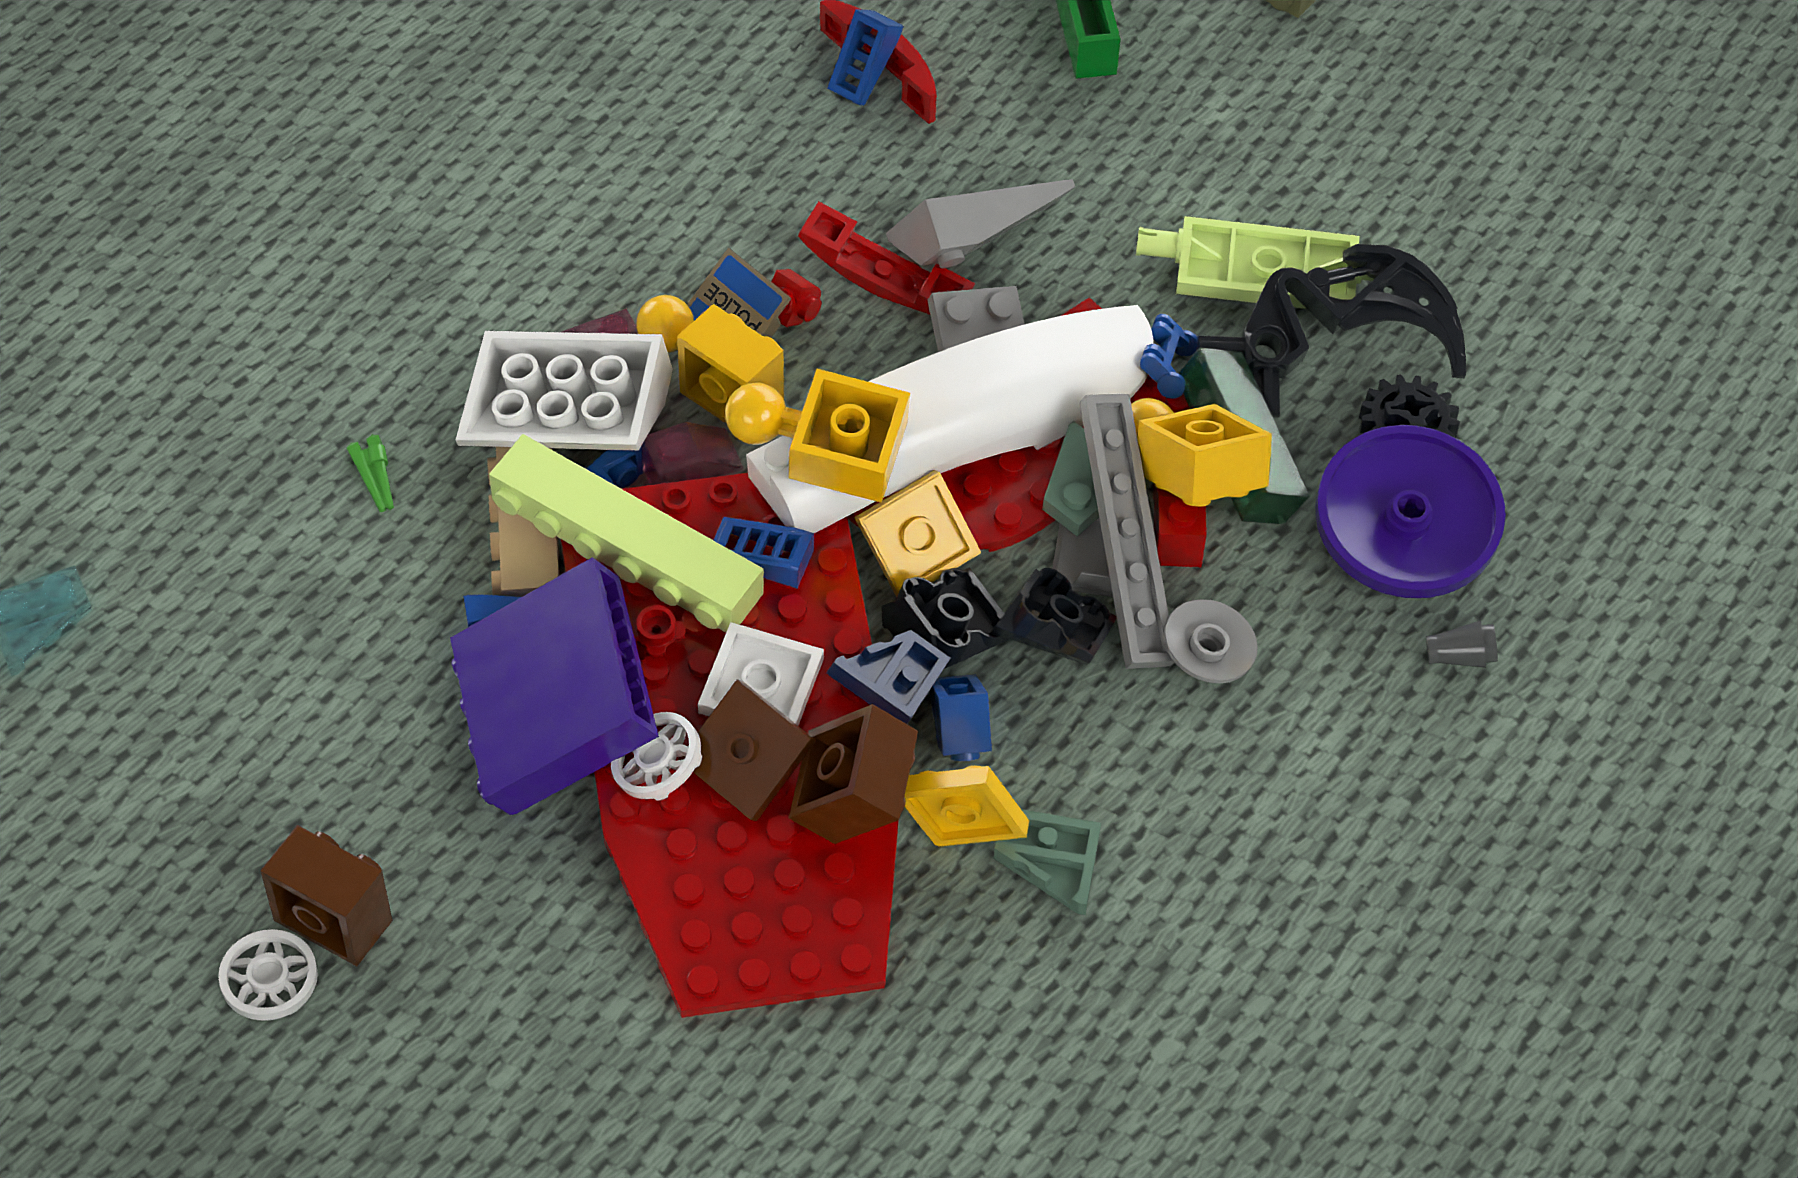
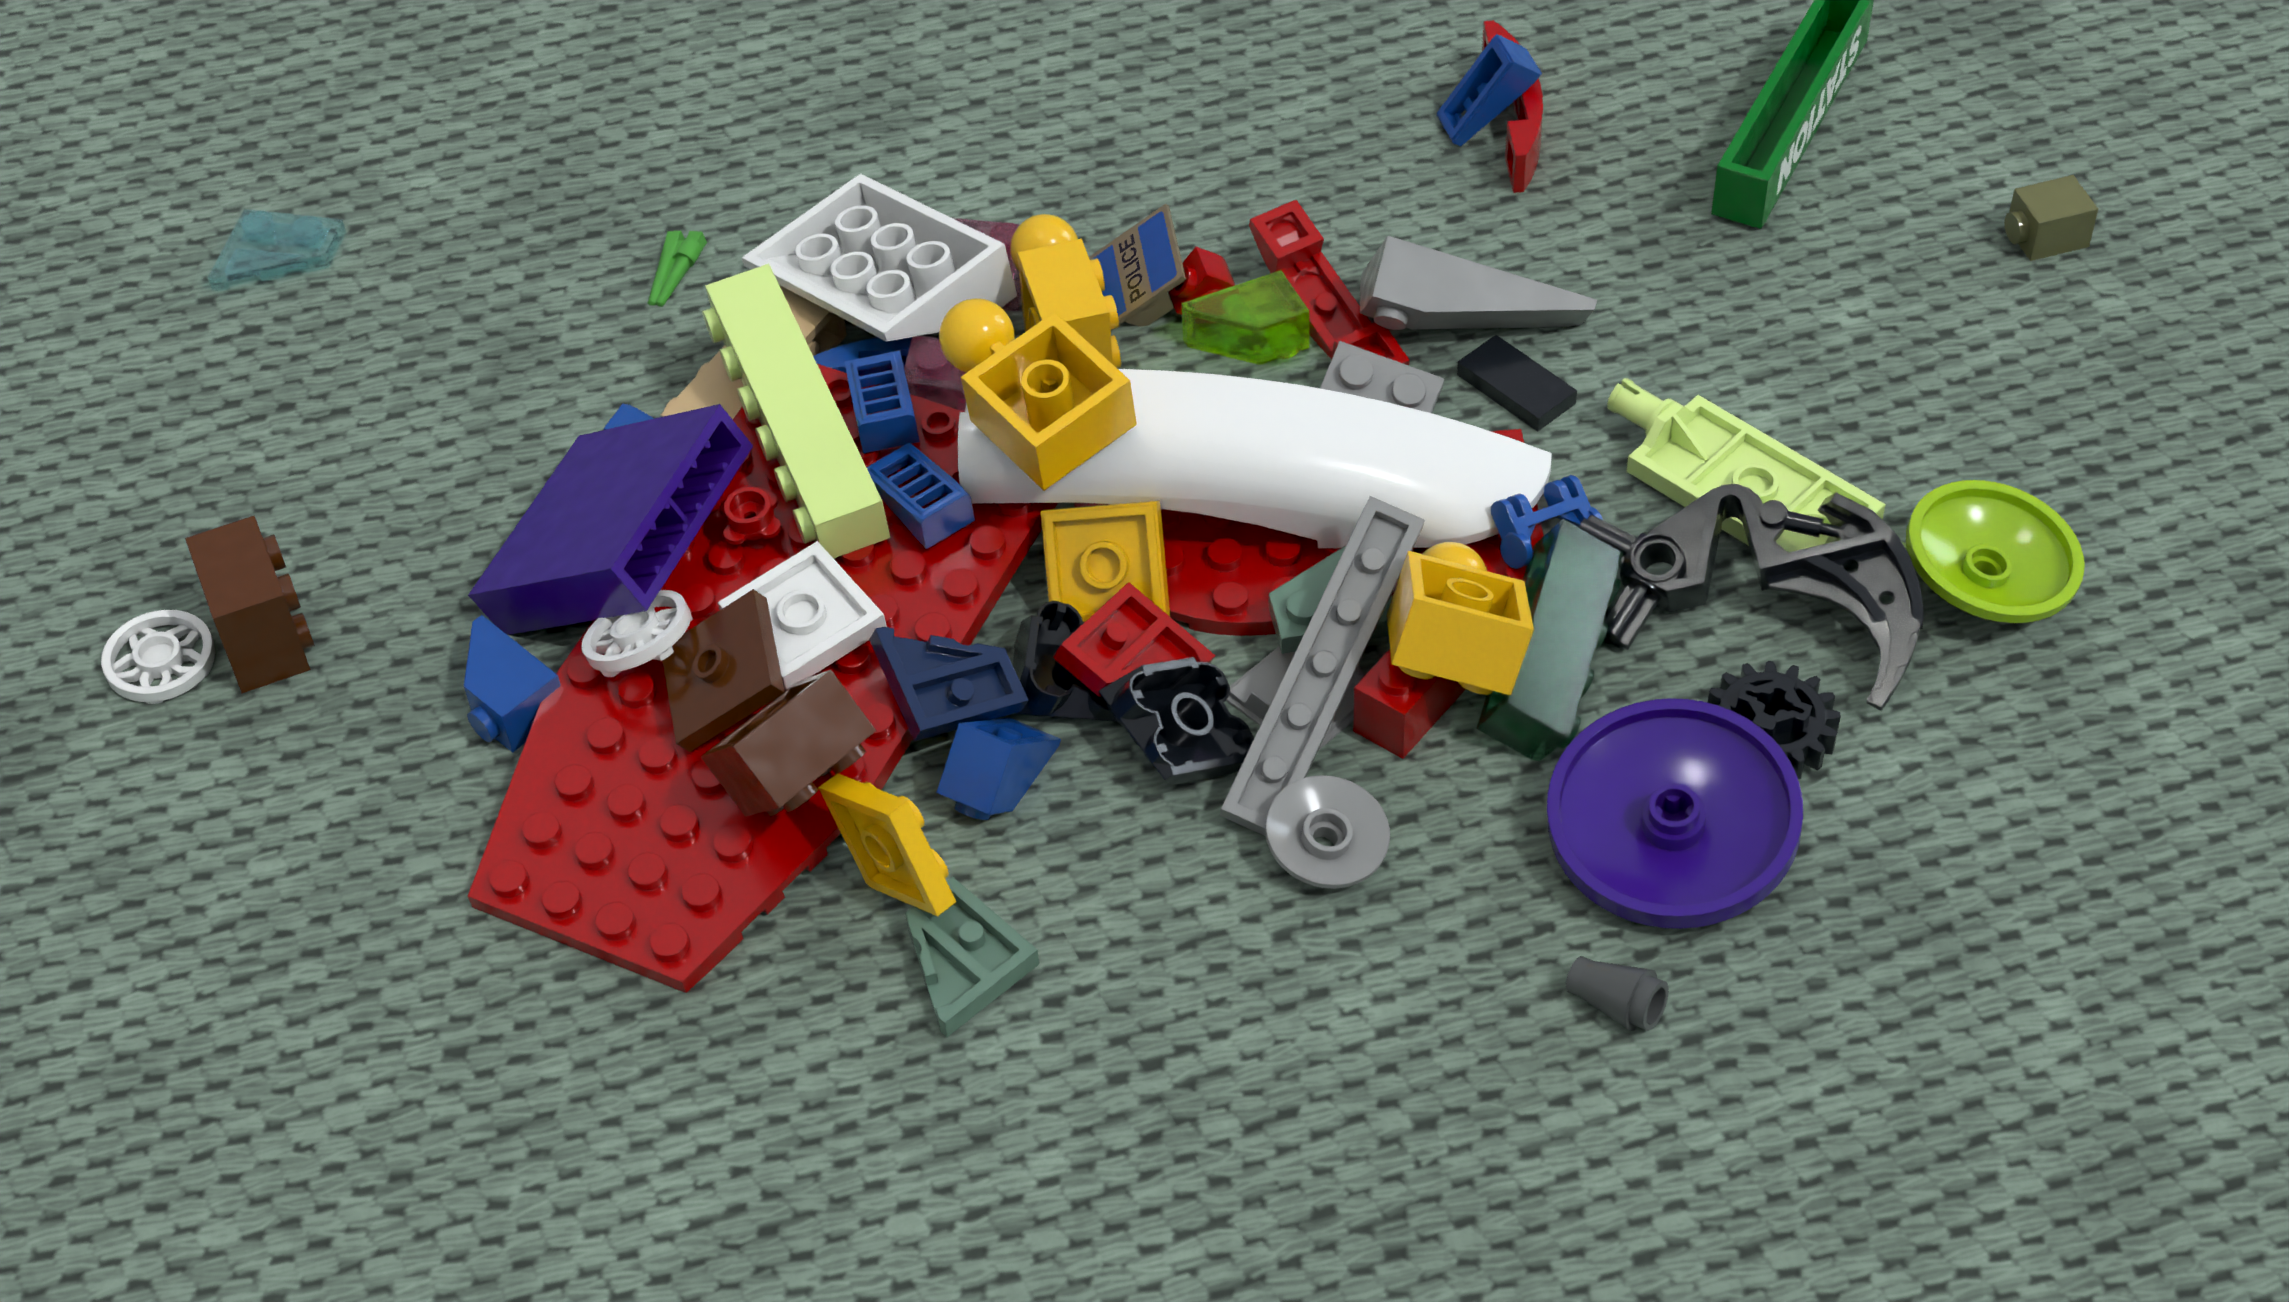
camera: 40 degrees right, 5 degrees down
(566, 848) = (503, 685): none -> blue slope
(710, 501) = (888, 427): none -> blue slope
(847, 307) = (1249, 321): none -> clear neon green slope
(981, 583) = (1123, 637): none -> red wing
(1053, 265) = (1516, 382): none -> black tile
(1456, 234) = (1995, 551): none -> lime dish

